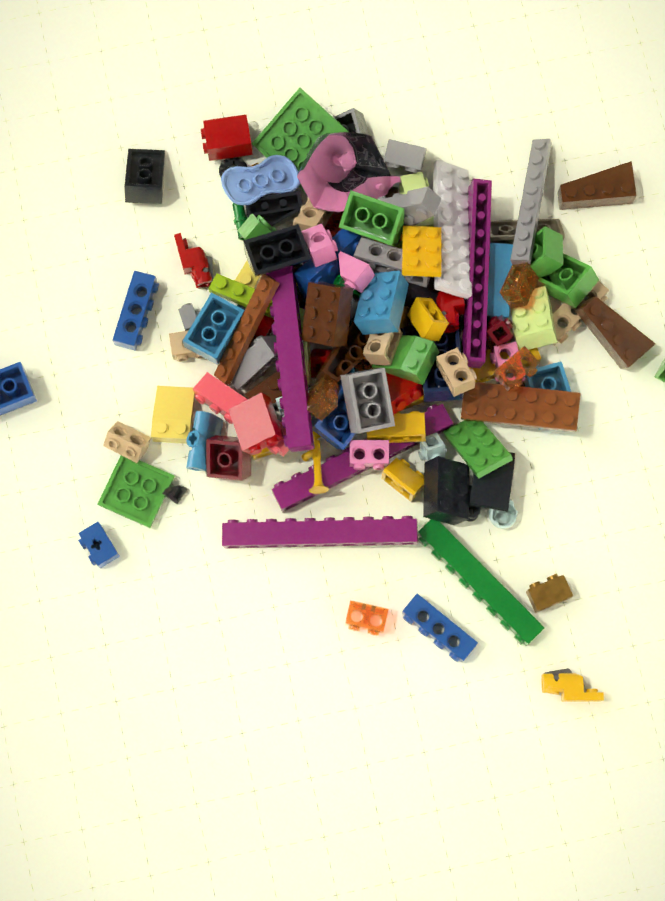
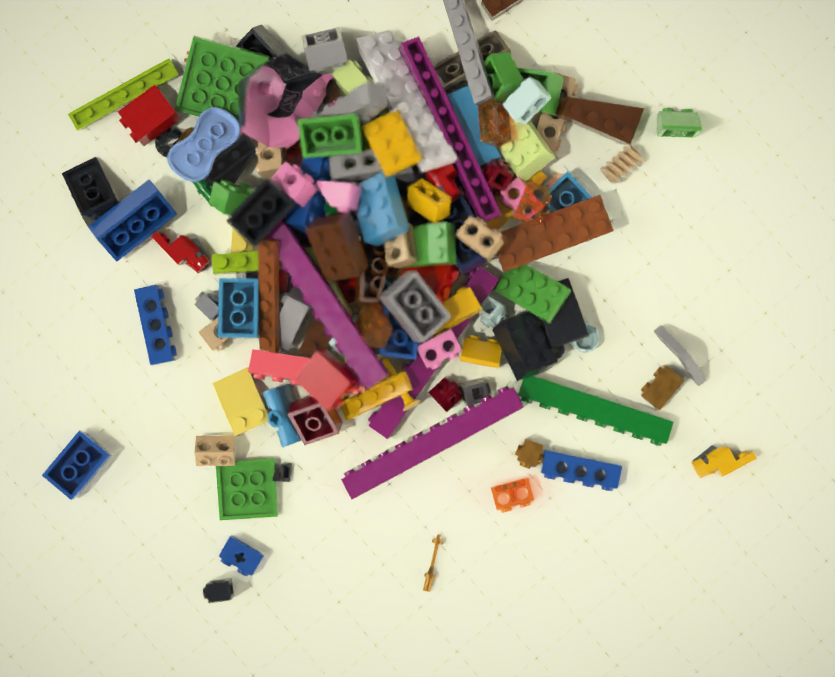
camera: 25 degrees left, 10 degrees up
(61, 563) = (218, 591): none -> black brick
(165, 213) = (132, 220): none -> blue brick
(198, 111) = (122, 94): none -> lime plate
(255, 651) = (429, 576): none -> pearl gold piece
(292, 467) = (376, 396): none -> yellow tile
(355, 498) = (446, 393): none -> dark red brick
(374, 505) = (474, 398): none -> dark grey brick
(400, 589) = (529, 453): none -> pearl gold brick
(557, 279) = (526, 100): none -> light aqua brick
(583, 573) = (681, 353): none -> light grey beam
(611, 382) = (621, 164): none -> tan piece

